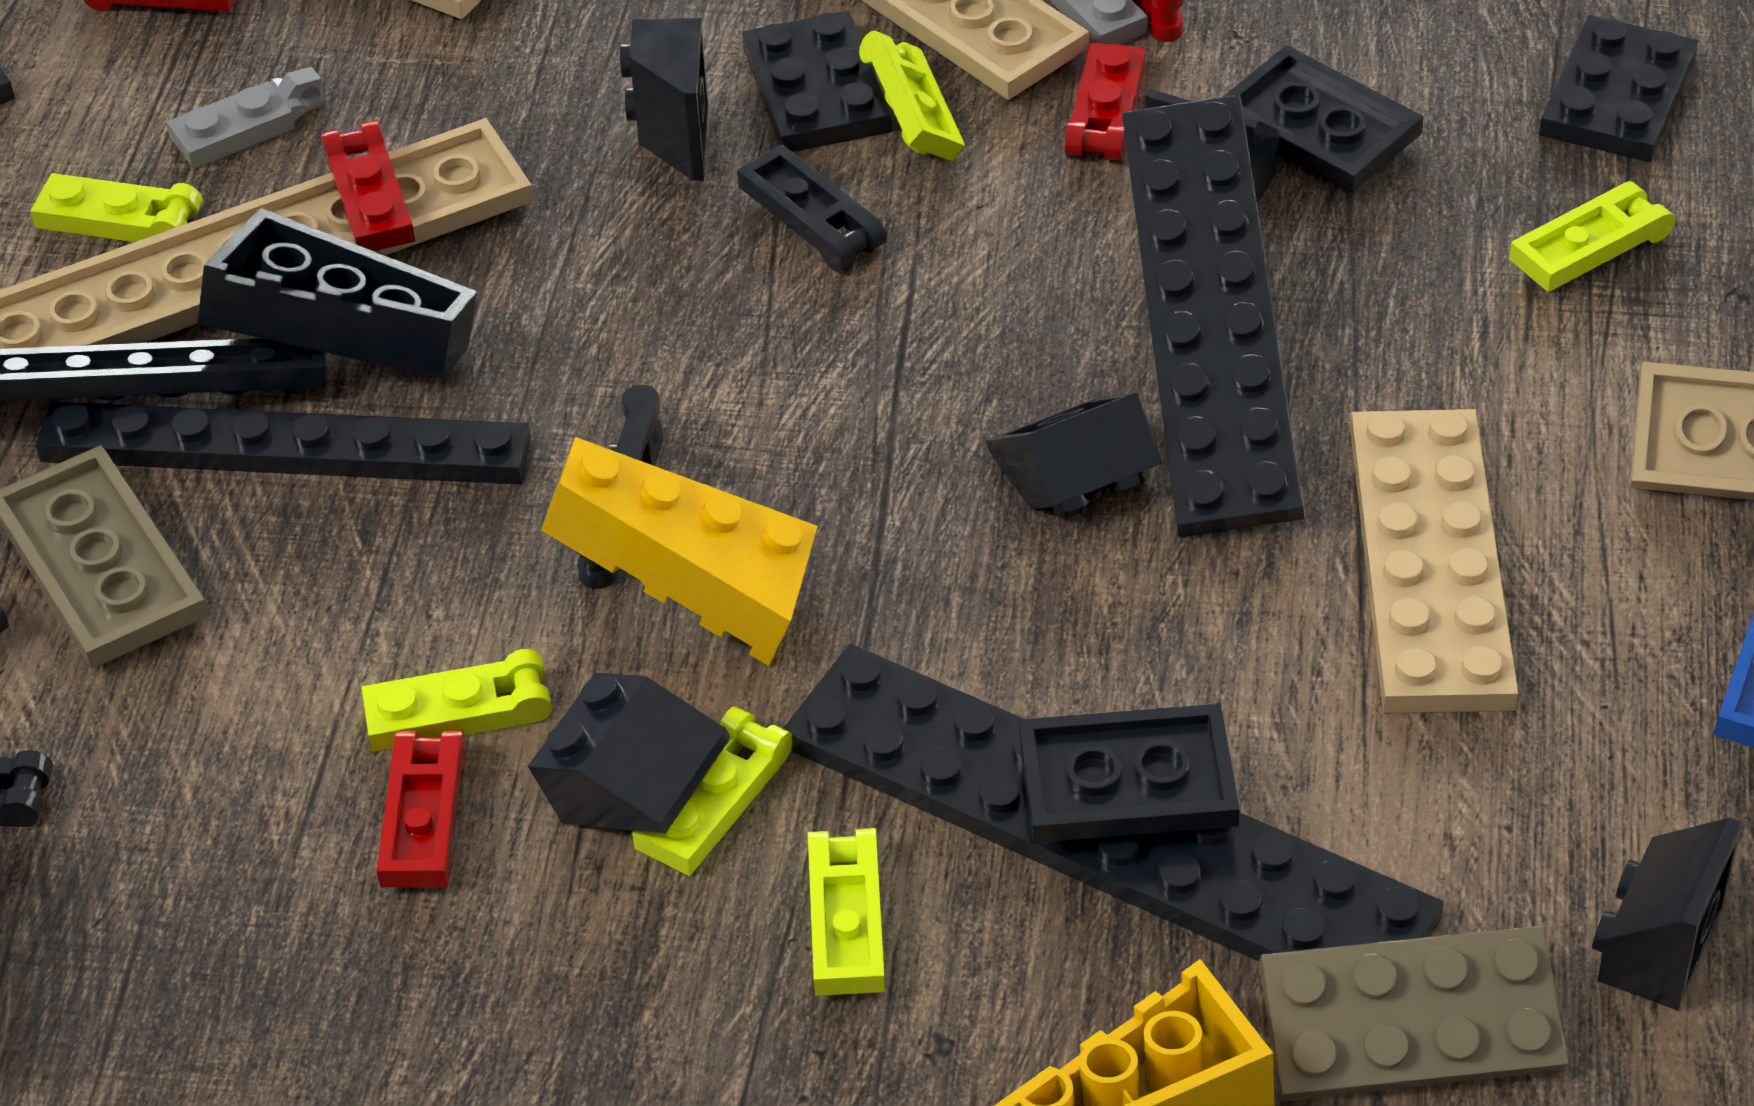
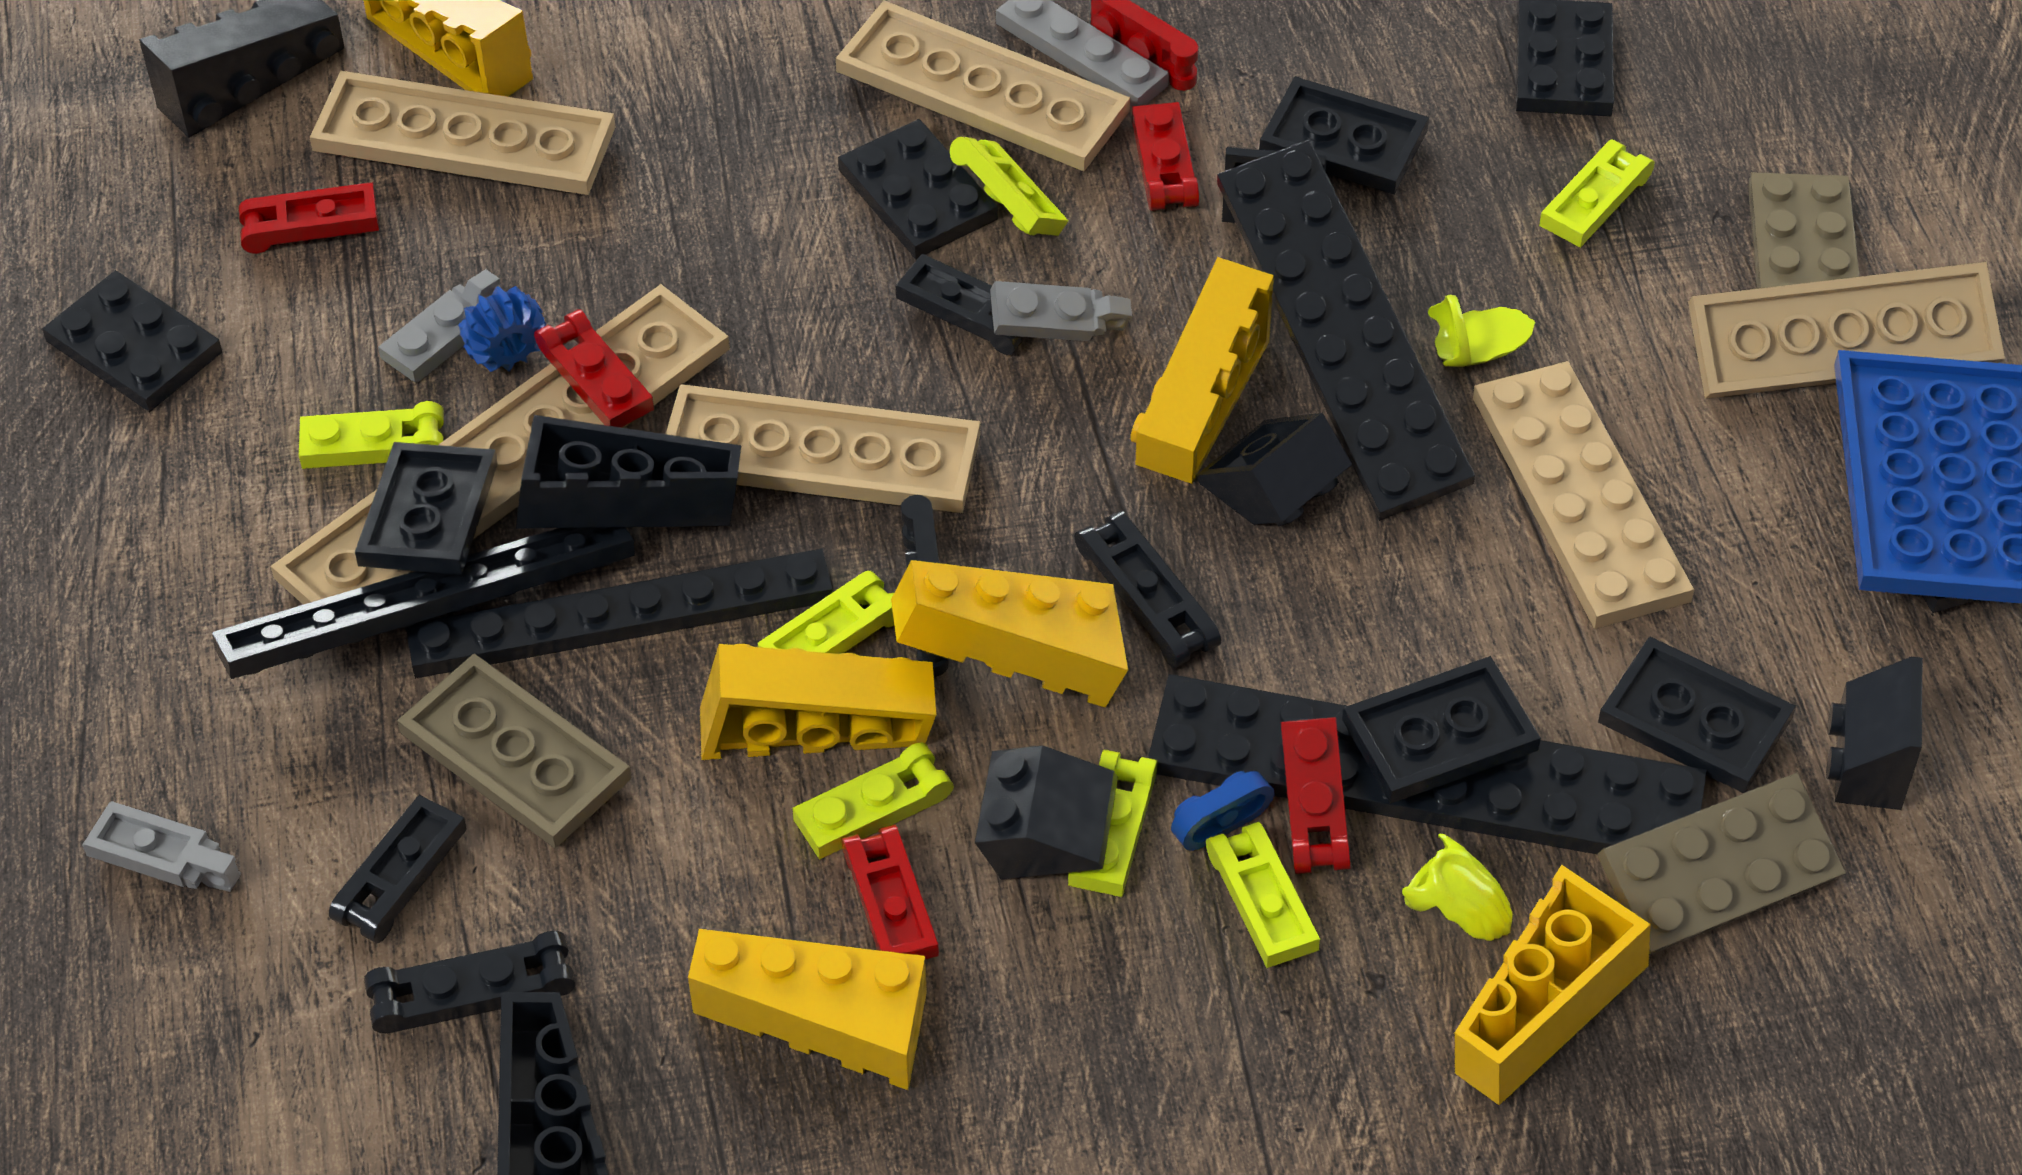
camera: 20 degrees left, 5 degrees up
(115, 284) = (426, 508): none -> black plate
(284, 894) = (815, 996): none -> yellow wedge
(289, 125) = (501, 328): none -> blue gear
(432, 575) = (813, 700): none -> yellow wedge
(485, 509) = (838, 619): none -> neon yellow plate
(595, 322) = (834, 446): none -> tan plate
(668, 91) = (814, 229): black slope -> none
(840, 804) = (1222, 810): none -> blue plate
(871, 547) = (1148, 588): none -> black plate
(901, 232) = (1056, 311): none -> light grey hinge
(952, 812) = (1315, 793): none -> red plate
(1038, 327) = (1206, 371): none -> yellow wedge
(1078, 966) = (1462, 892): none -> neon yellow piece
(1380, 358) = (1478, 335): none -> neon yellow piece
(1460, 835) = (1696, 714): none -> black plate

